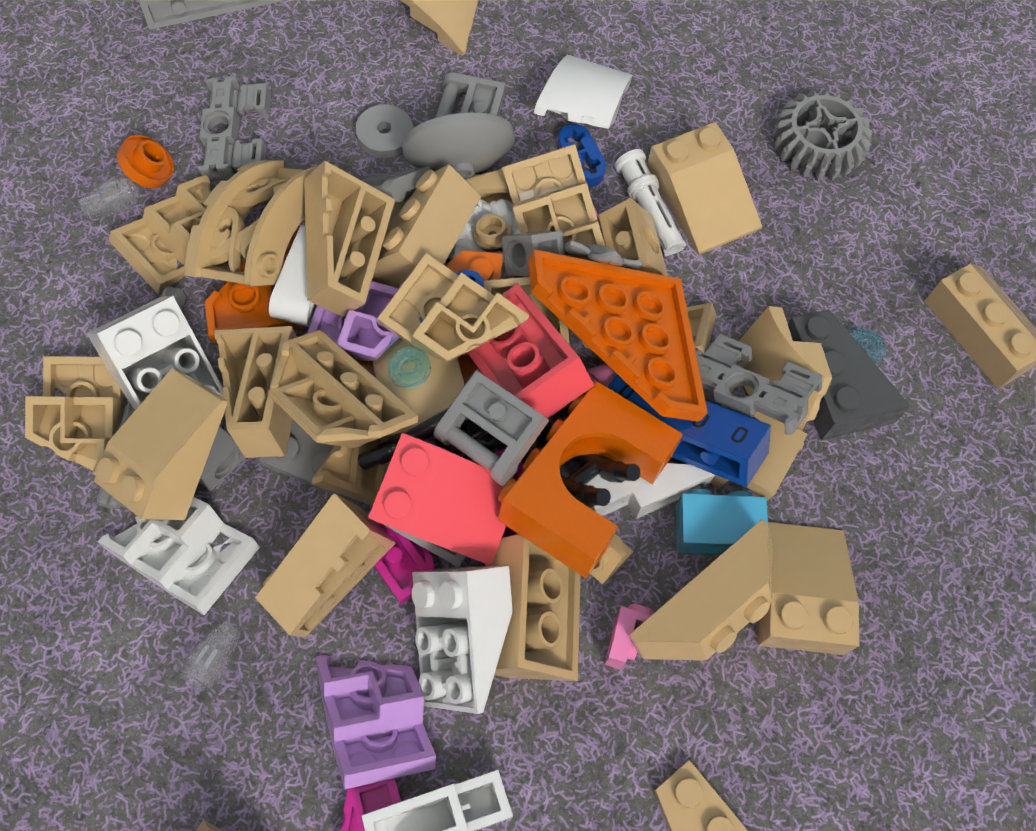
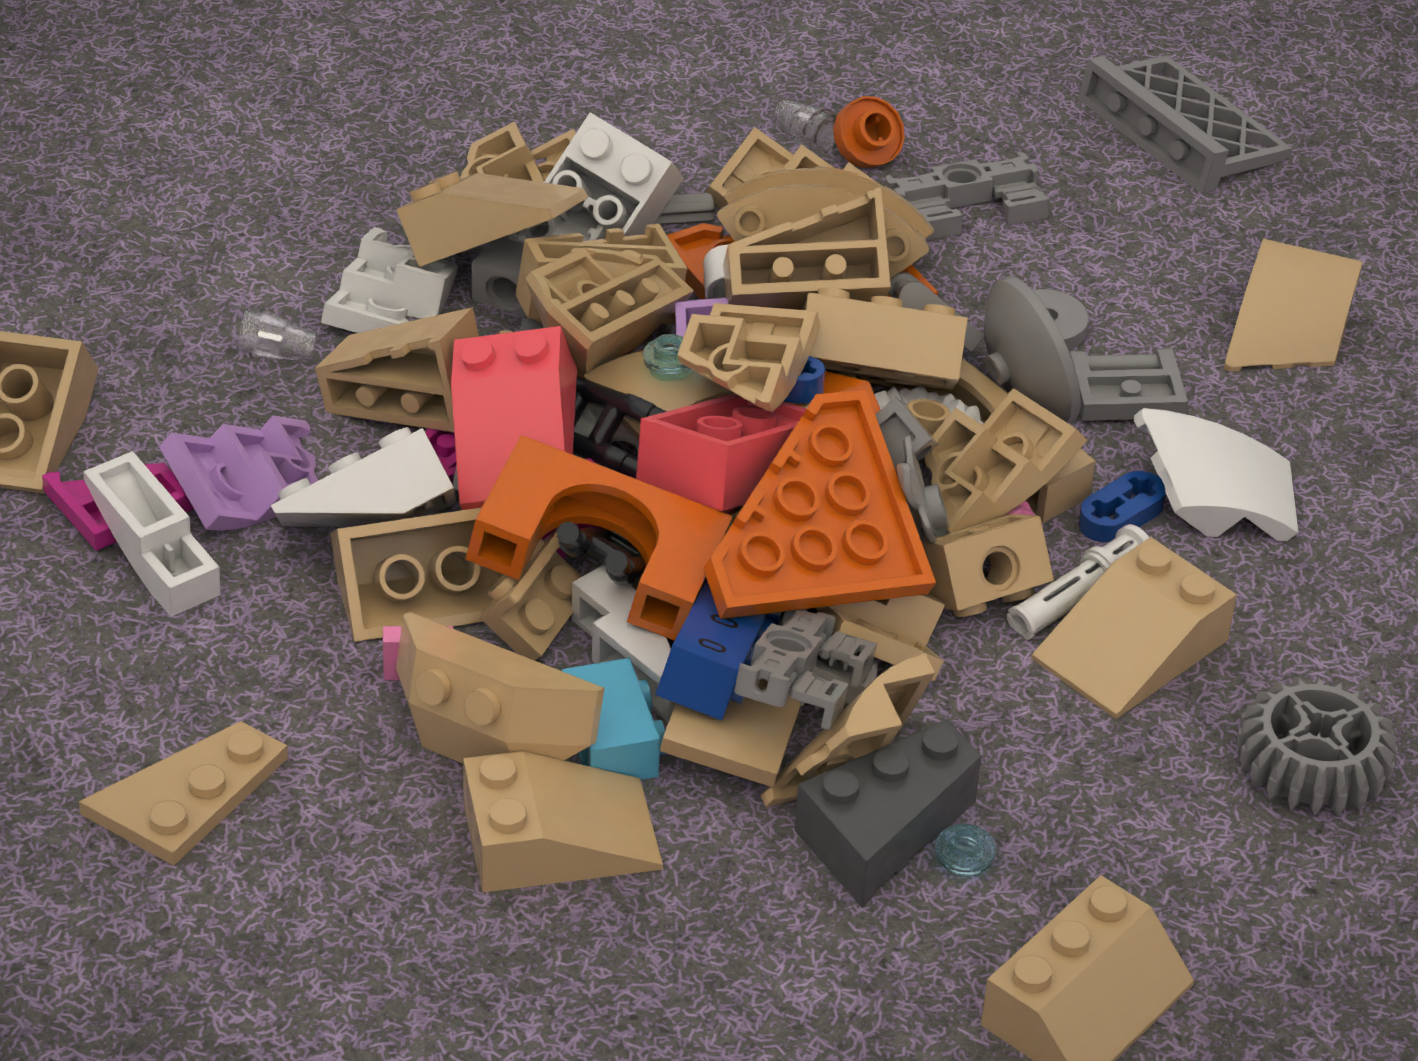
camera: 75 degrees right, 25 degrees down
(498, 414) = (610, 409): light grey plate -> none

